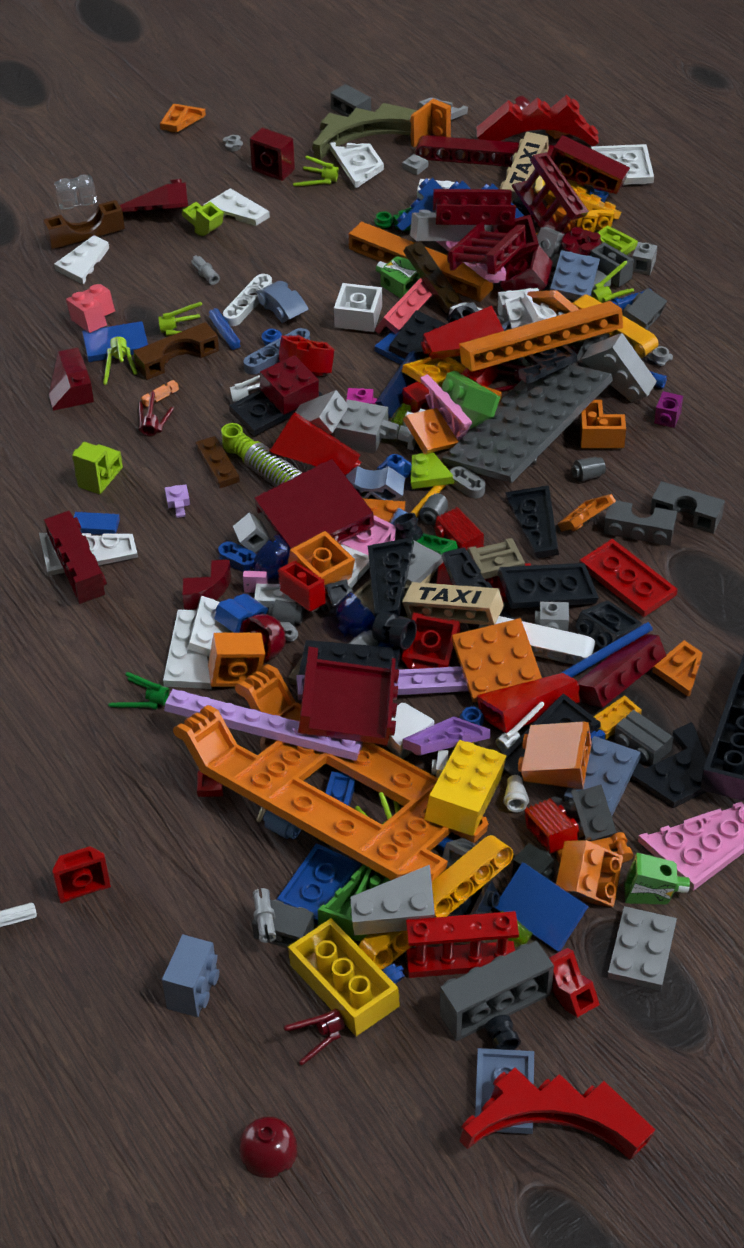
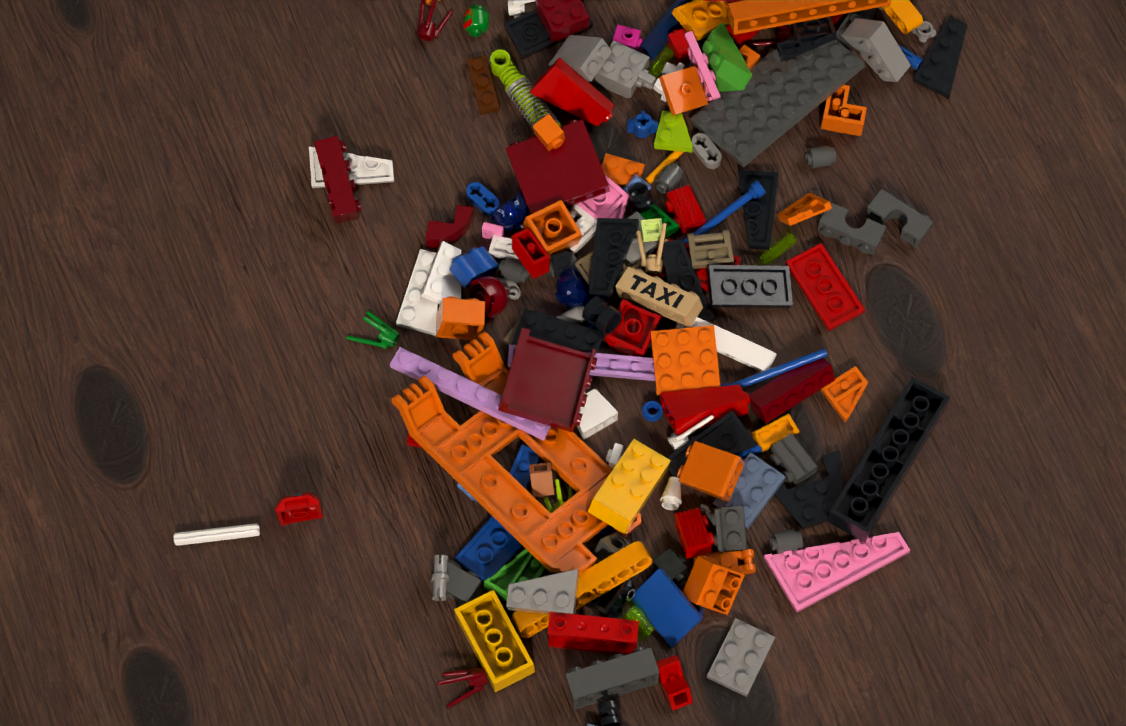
camera: 10 degrees right, 20 degrees up
(96, 466) = (371, 75): lime brick -> none
(98, 522) = (361, 137): blue tile -> none
(177, 497) = (439, 122): lavender plate -> none
(190, 976) = (373, 619): sand blue brick -> none
(199, 408) = (476, 20): none -> green head
(251, 532) = (498, 178): light grey brick -> none
(299, 472) = (549, 132): none -> orange brick
(363, 797) = (541, 480): none -> nougat brick
(377, 484) = (619, 142): sand blue brick -> none
(394, 973) = (534, 645): blue plate -> none
(429, 546) = (651, 229): none -> yellowish green plate
(439, 574) = (654, 263): none -> tan plant
(445, 736) = (624, 428): medium lavender wing -> none
(529, 502) = (755, 190): none -> blue piece
(553, 615) = (745, 322): light grey brick -> none
(569, 551) = (778, 249): none -> clear neon green axle
(605, 623) = (793, 336): black plate -> none
(653, 881) = (764, 602): bright green torso -> none
(658, 817) = (786, 541): none -> dark grey brick
(668, 409) = (914, 93): magenta brick -> none
(687, 374) = (941, 62): none -> black wing

